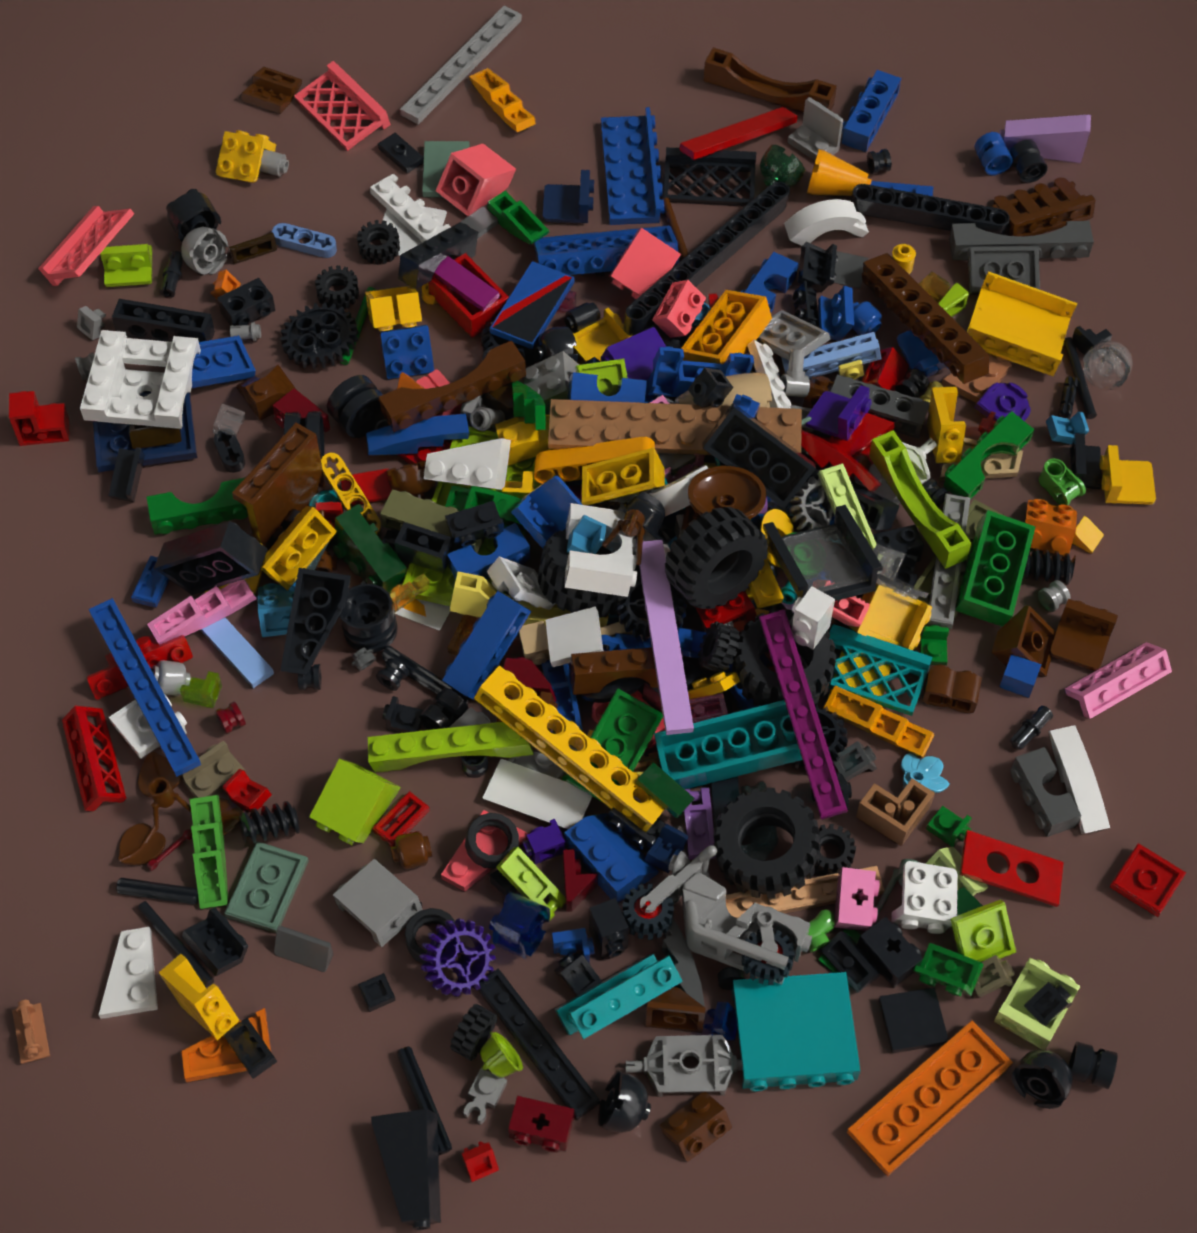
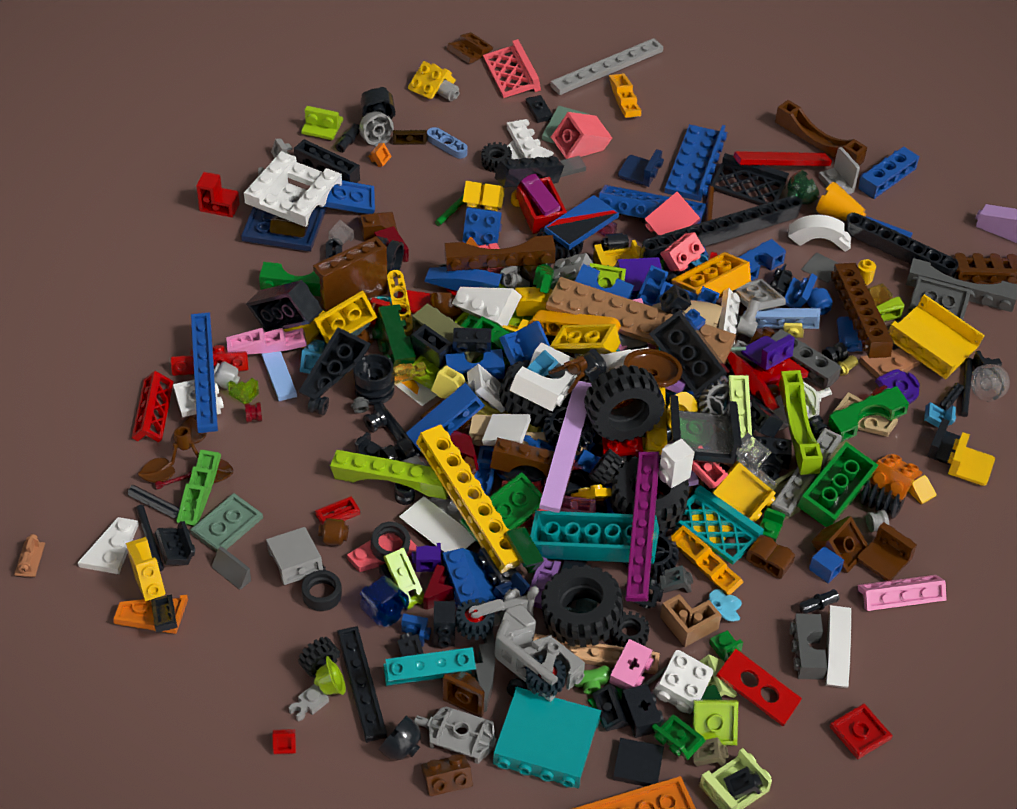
camera: 20 degrees right, 10 degrees down
(84, 244) = (297, 102): coral fence -> none
(127, 474) = (258, 246): black panel -> none
(150, 585) = (240, 318): blue plate -> none
(215, 770) = (227, 440): dark tan bracket -> none
(246, 303) = (388, 168): black brick -> none
(246, 331) = (384, 186): light grey pin -> none
(246, 792) = (240, 459): red bracket -> none
(268, 821) = (246, 482): black piece -> none
(319, 335) = (428, 201): black gear -> none
(337, 277) = (449, 182): black tyre -> none
(353, 801) = (308, 488): lime slope -> none
(356, 406) = (429, 247): black wheel -> none
(376, 992) = (268, 613): black tile -> none
(412, 1164) = (236, 724): black slope -> none
(422, 1094) = (266, 690): black axle -> none
(465, 976) = (349, 607): dark purple gear -> none
(516, 218) = (598, 168): green slope -> none
(528, 1115) = (338, 733): dark red brick -> none
(555, 341) = (587, 246): black cylinder -> none
(724, 1021) = (498, 713): clear blue tile -> none
(817, 266) = (800, 258): black bracket -> none
(879, 161) = (879, 205): black wheel -> none
(887, 371) = (821, 338): red panel -> none
(942, 427) = (845, 382): yellow panel -> none
(993, 153) = (967, 223): blue wheel -> none
(1028, 161) = (992, 235): black wheel -> none
(1063, 484) = (918, 448): bright green piece -> none

